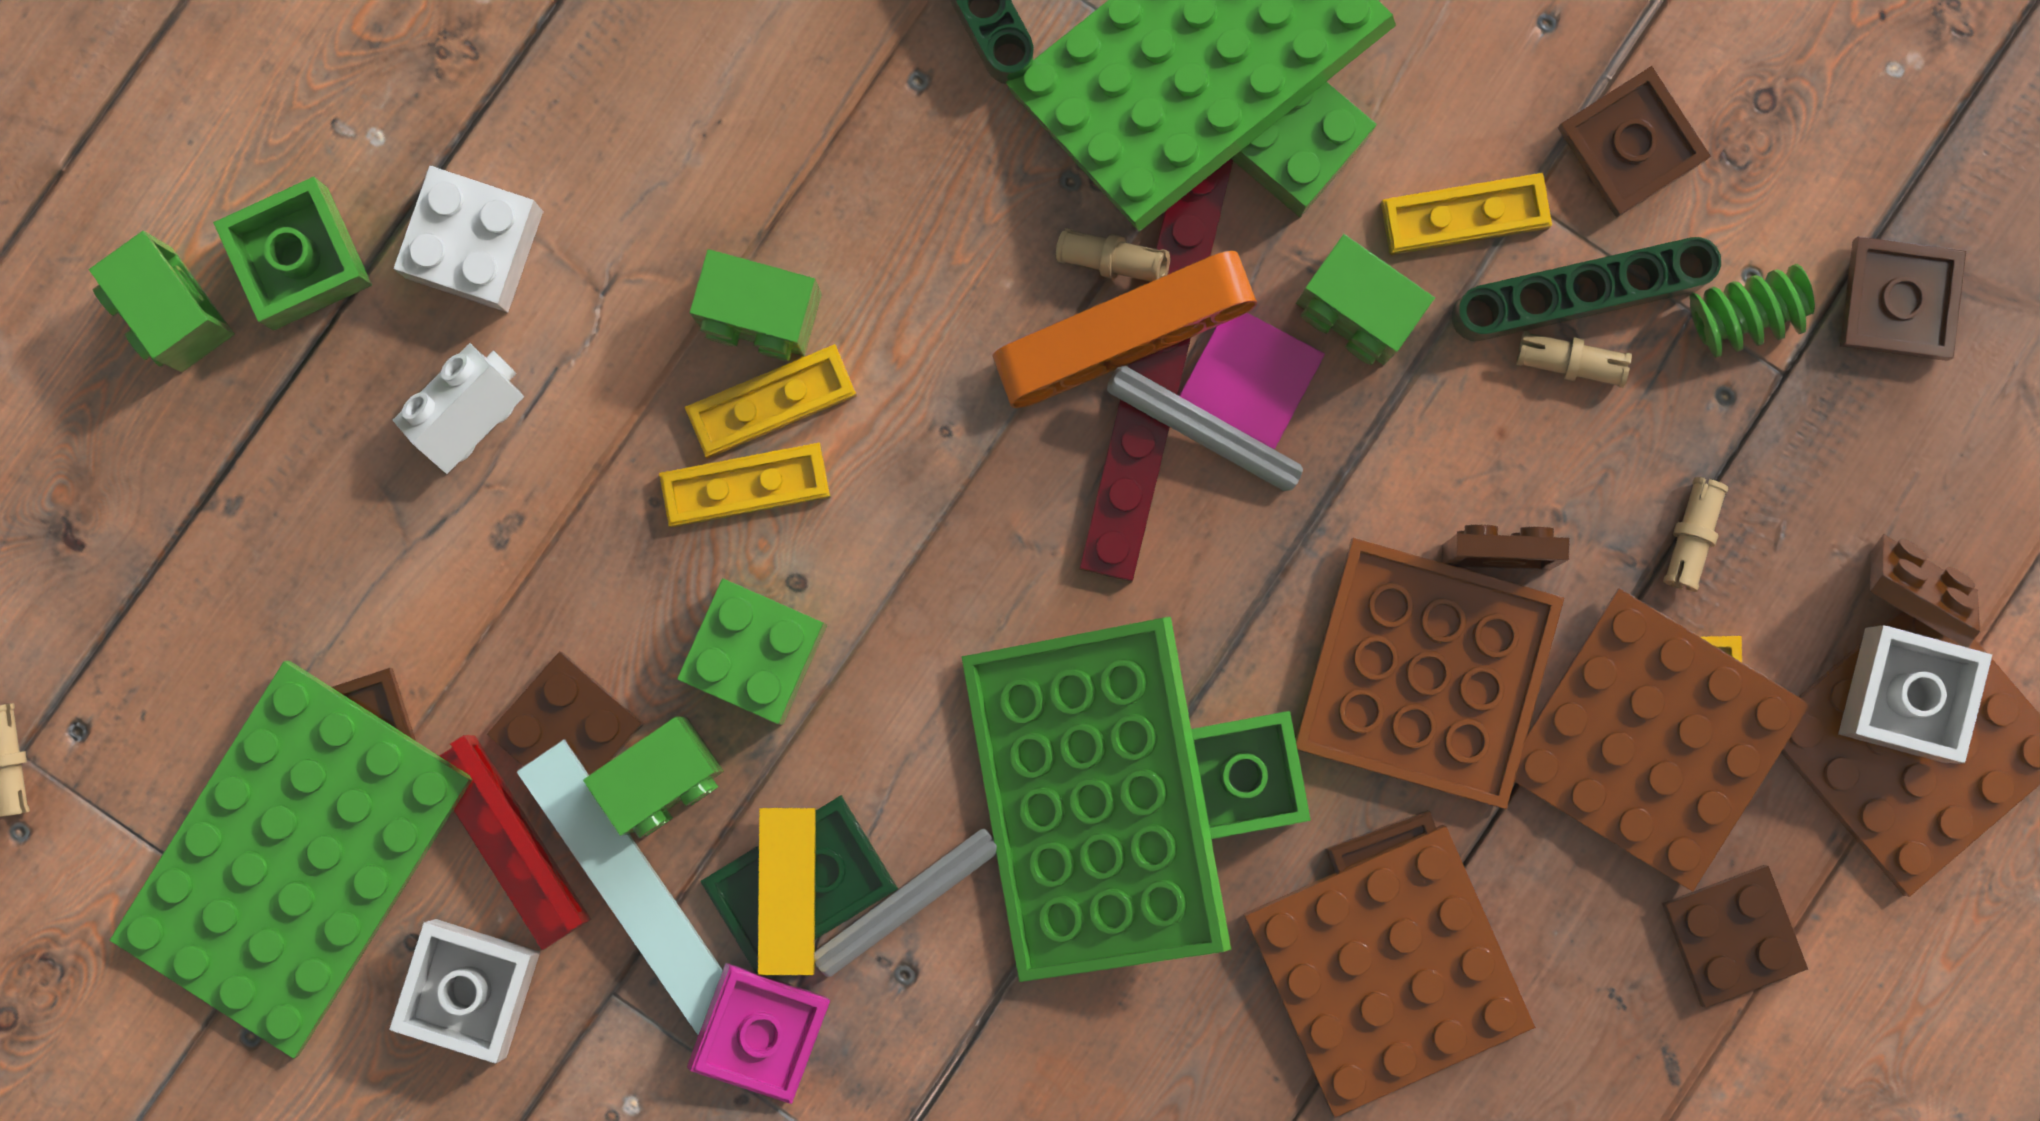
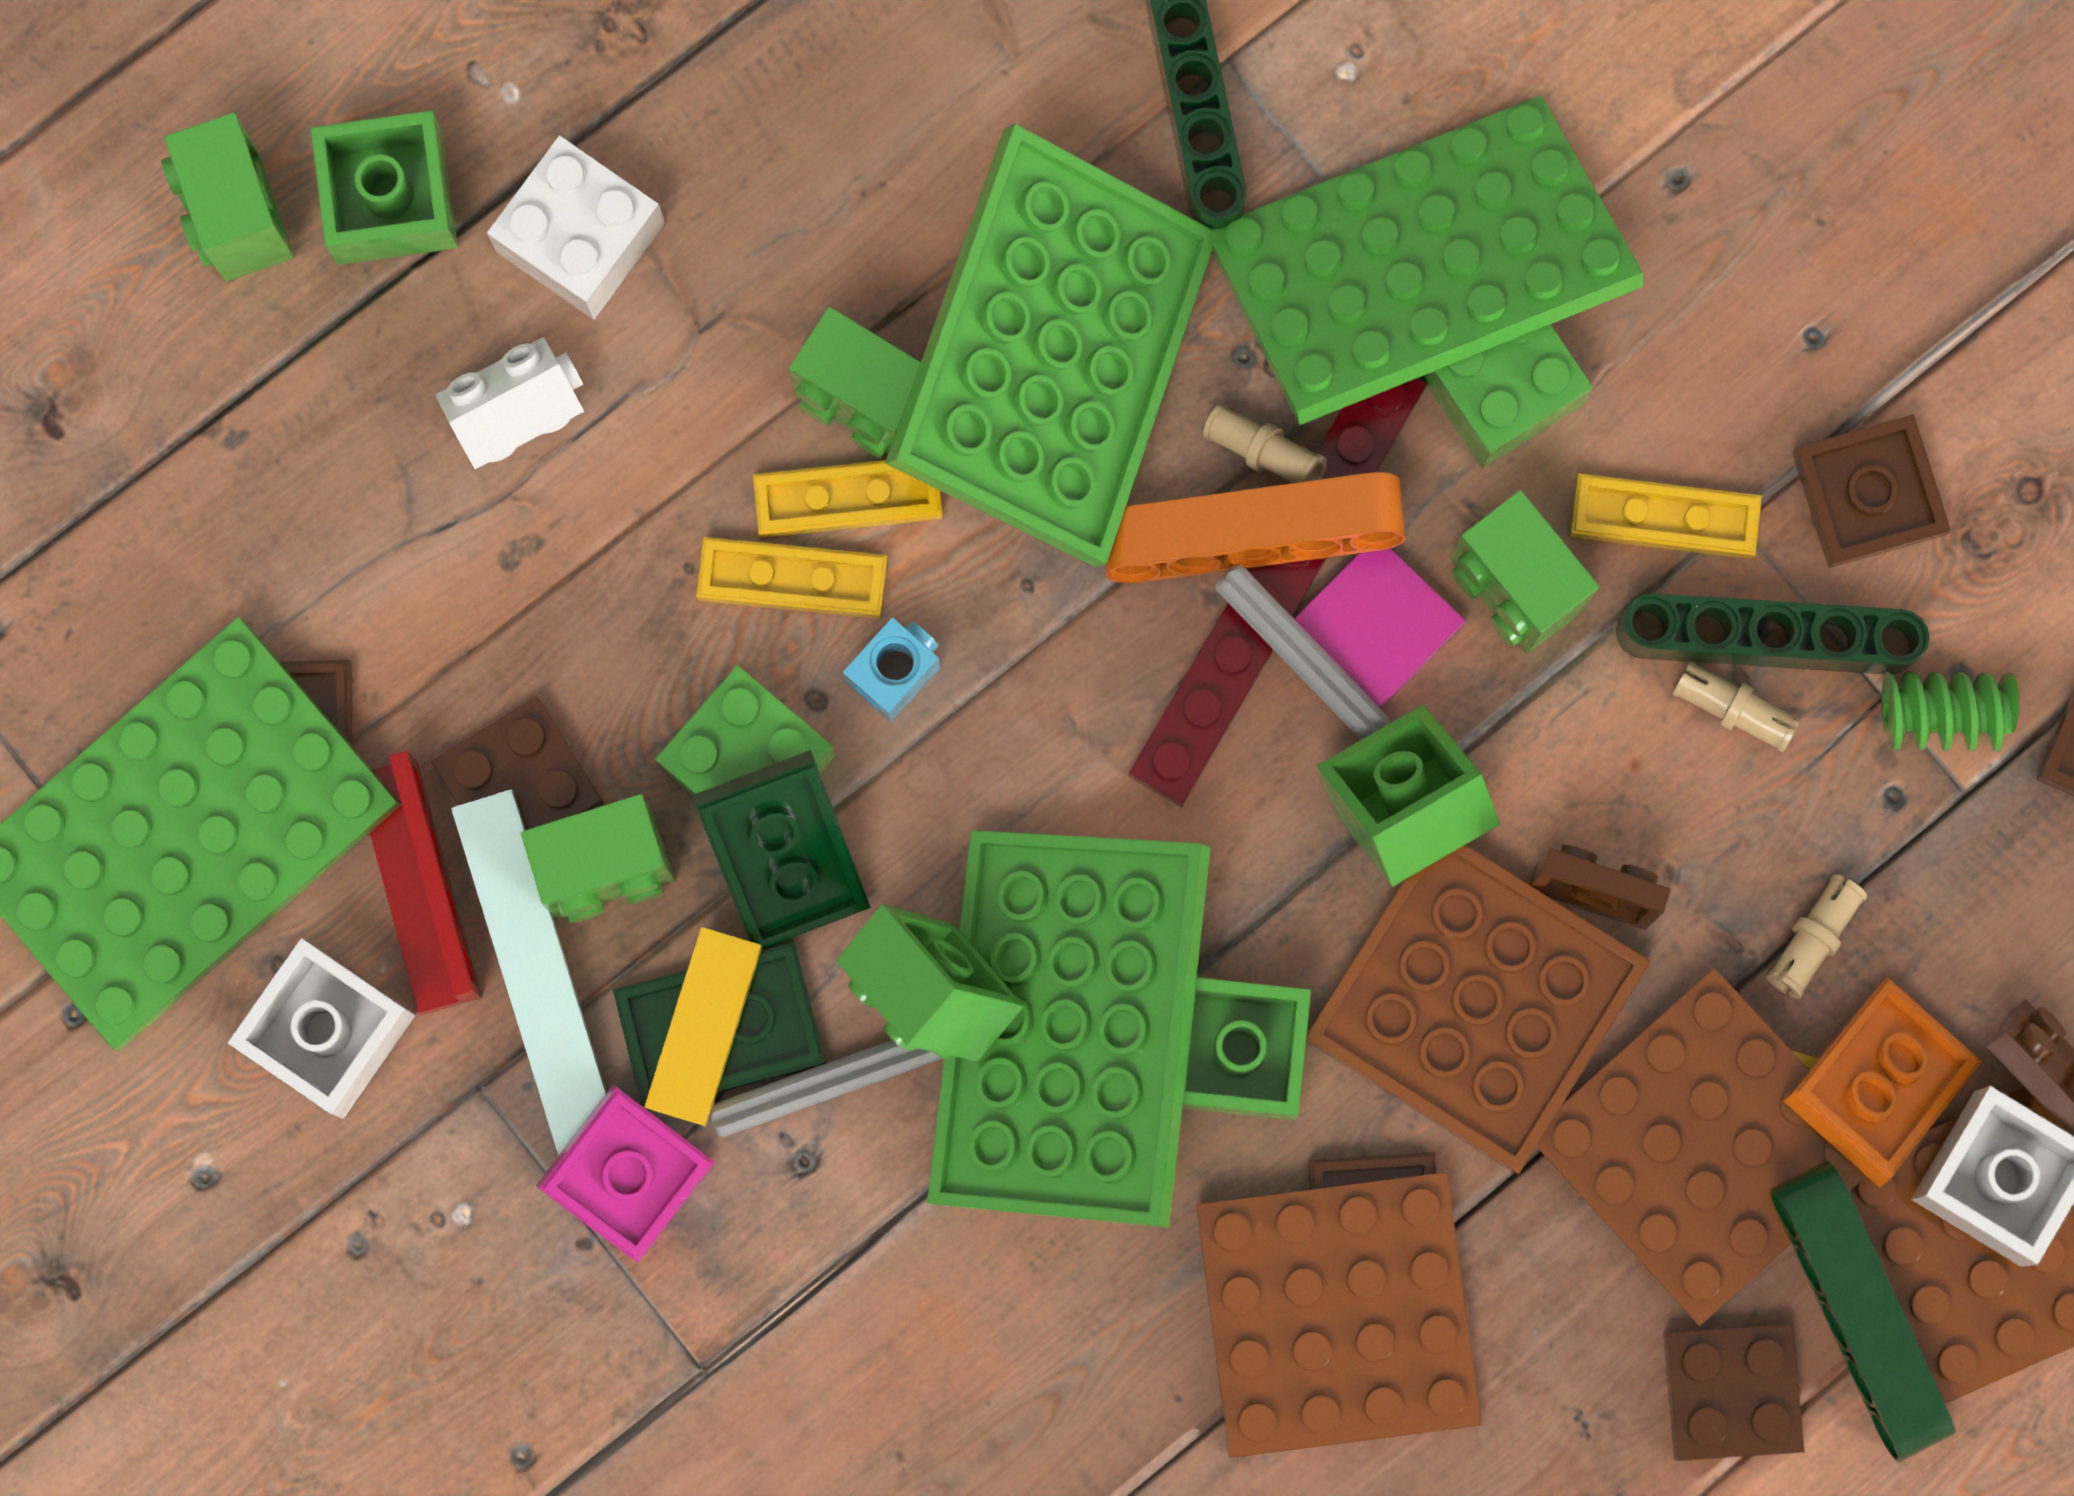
camera: 20 degrees right, 5 degrees down
(807, 724) = (781, 850): none -> dark green tile
(854, 562) = (890, 695): none -> medium azure brick
(908, 225) = (1052, 347): none -> bright green plate
(967, 802) = (928, 984): none -> bright green brick
(1322, 519) = (1408, 795): none -> bright green brick
(1787, 643) = (1883, 1082): none -> orange tile
(1825, 840) = (1862, 1311): none -> dark green beam

